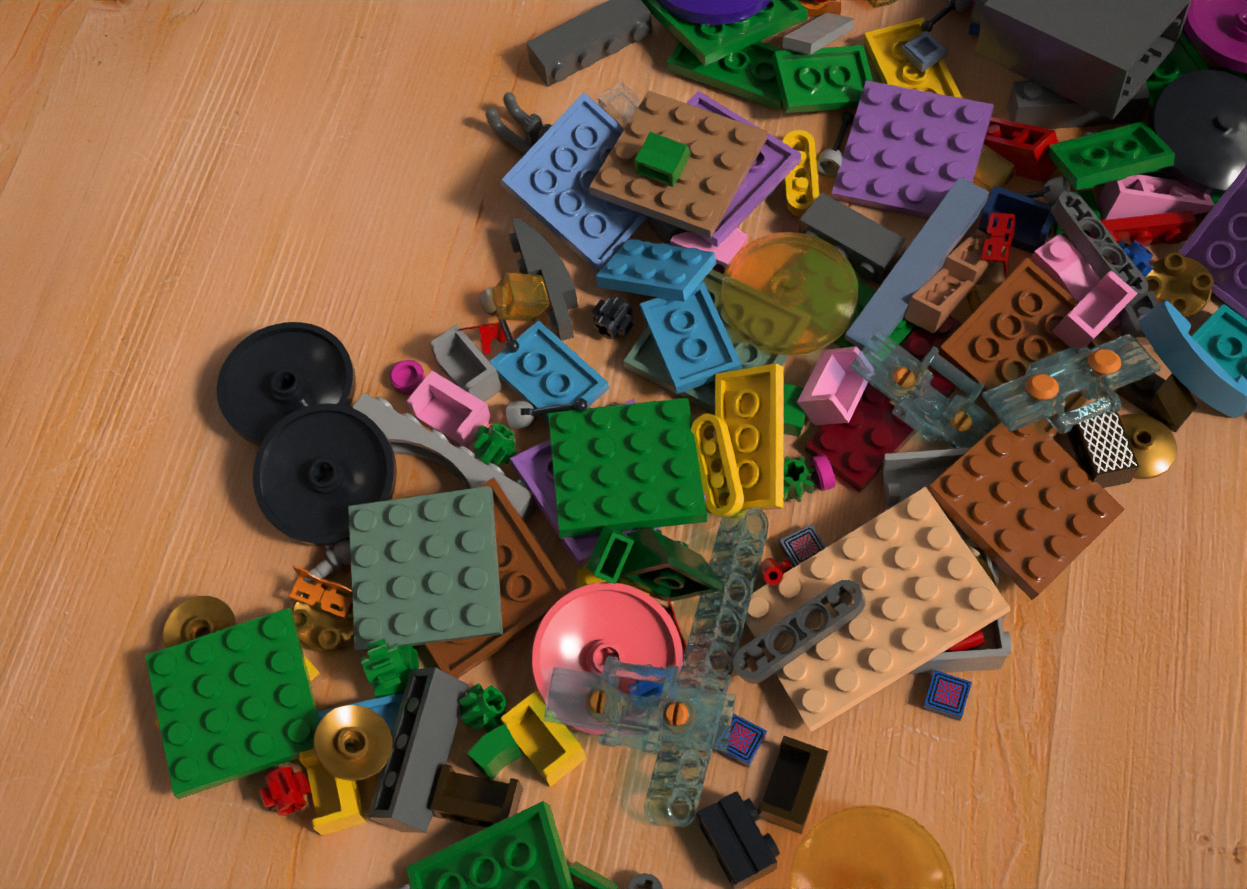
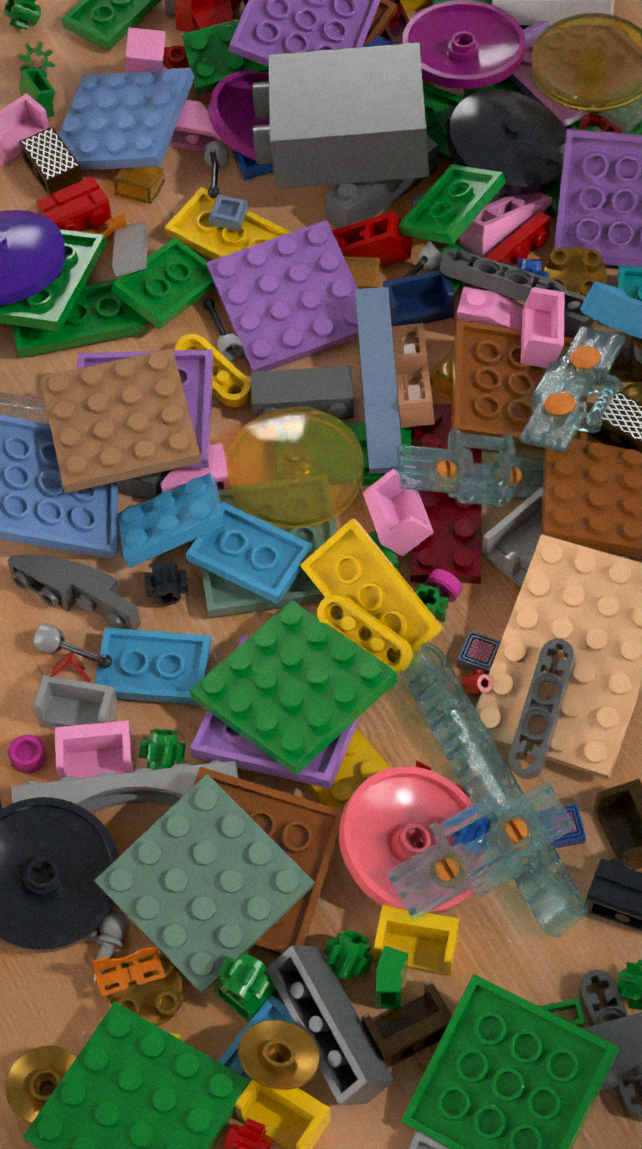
camera: 45 degrees left, 5 degrees down
(520, 297) = (75, 617): clear yellow brick -> none
(522, 414) = (162, 710): hinge -> none
(617, 556) = (353, 754): green piece -> none
(662, 159) = (112, 421): green piece -> none
(668, 567) = (397, 737): dark green slope -> none
(997, 239) = (419, 321): red piece -> none

